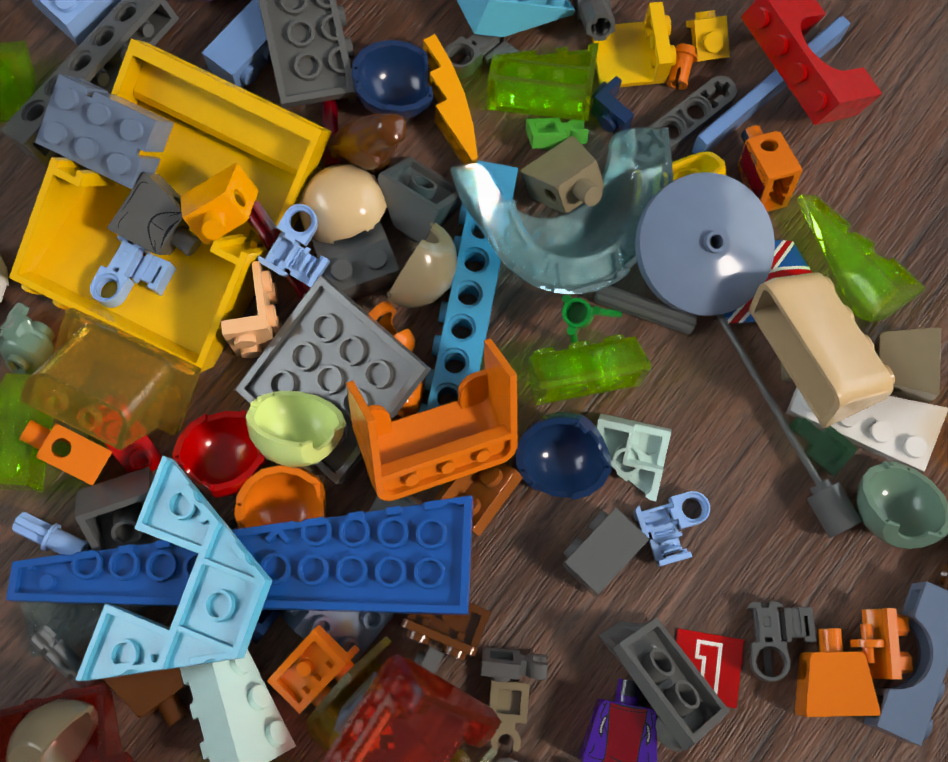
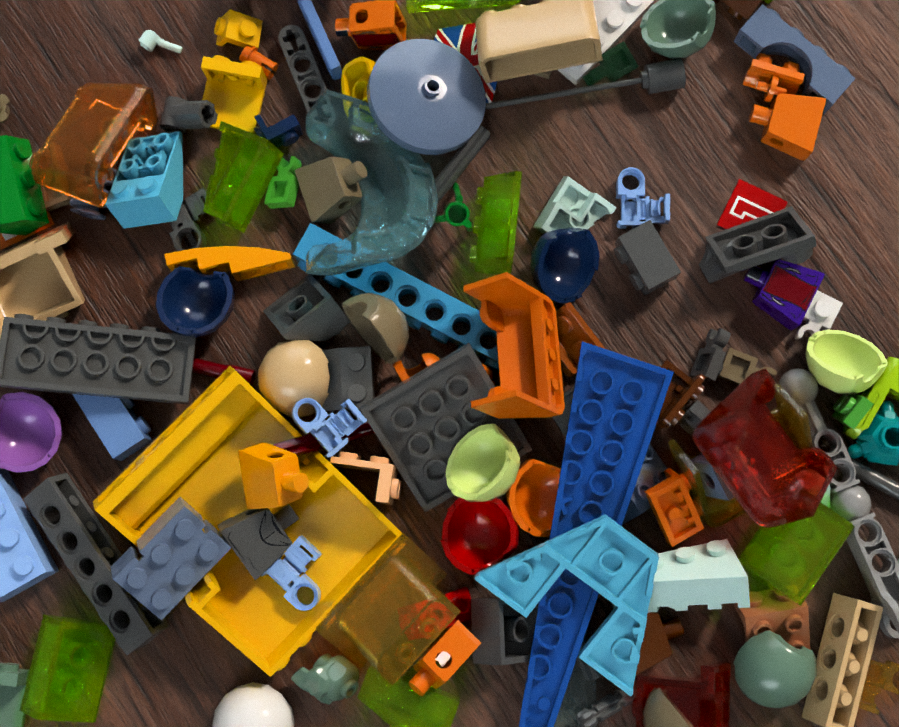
camera: 65 degrees left, 5 degrees up
(48, 535) = (502, 697): light blue axle -> none
(369, 141) = (252, 335): reddish brown animal -> none
(778, 626) = (737, 152): dark grey piece -> none

